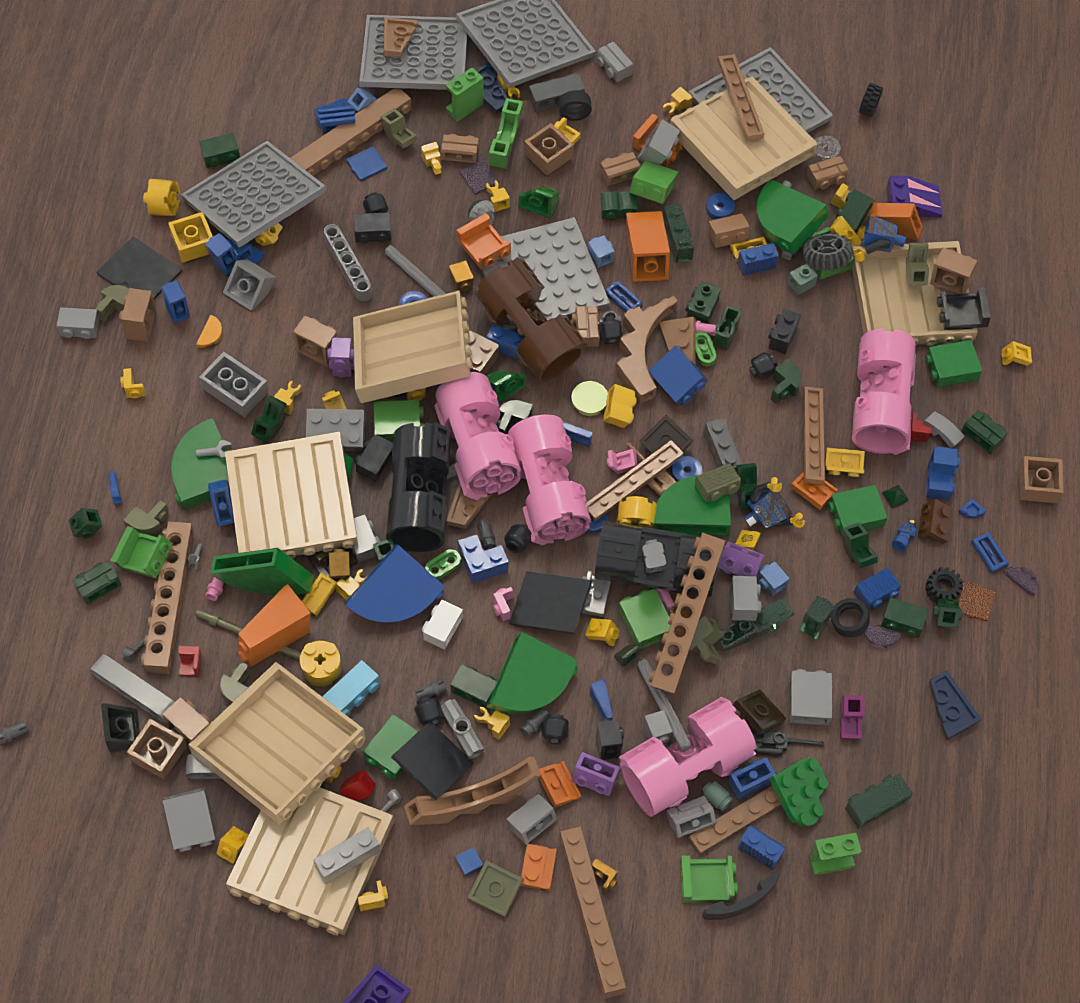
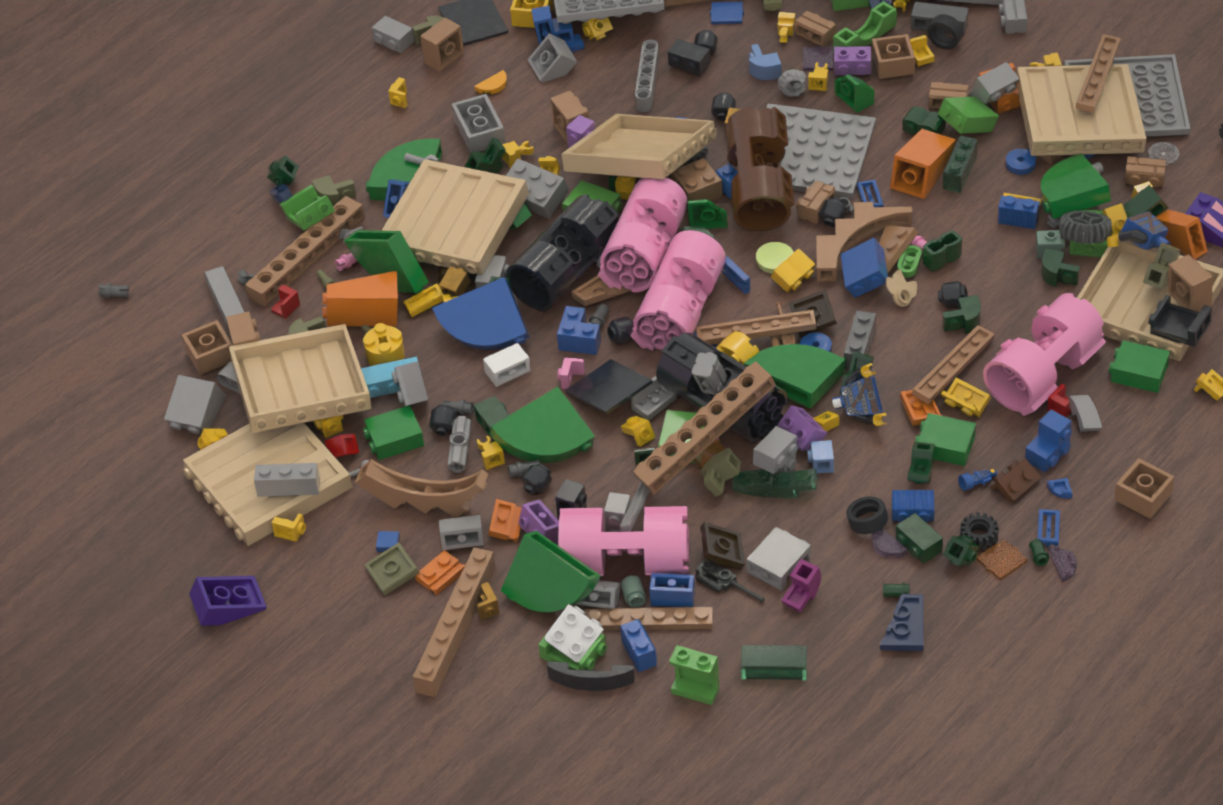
camera: 40 degrees right, 15 degrees down
(96, 582) = (259, 217): dark green brick -> none
(104, 548) = (280, 193): none -> dark blue beam
(115, 494) = (324, 160): blue bar -> none
(119, 726) = (191, 316): pearl dark grey slope -> none
(175, 301) = (479, 46): blue brick -> none
(374, 458) = (541, 220): black brick -> none
(379, 693) = (410, 383): none -> light grey slope
(413, 271) = (701, 109): light grey axle -> none
(432, 760) = (411, 448): black piece -> none
(438, 264) = (721, 105): none -> black head
(441, 563) = (543, 323): bright green plate -> none
(443, 207) = (764, 66): none -> medium blue brick
(483, 242) = (776, 94): orange panel -> none
(516, 168) = (852, 60): none -> medium lavender brick
(601, 251) = (877, 151): medium blue brick -> none
(601, 699) = (596, 472): blue slope -> none
(622, 461) = (755, 310): bright pink bracket -> none
(652, 829) = (547, 576): none -> green brick
(704, 302) = (937, 223): dark green brick -> none
(706, 868) = (574, 633): none -> white bracket
(718, 482) = (825, 356): olive brick -> none
(719, 381) = (900, 289): none -> tan plate
(729, 230) = (1009, 179): medium nougat brick -> none
(784, 331) = (995, 276): black brick -> none
(799, 790) = (708, 617): green plate -> none
(817, 617) = (833, 497): clear green brick -> none
(823, 303) = (1055, 270): none -> dark green brick
(895, 496) = (995, 446): dark green slope -> none
(920, 676) = (895, 590): none -> dark green pin
(984, 431) = (1124, 431): dark green brick -> none
(1000, 580) = (1040, 556): none -> dark green pin

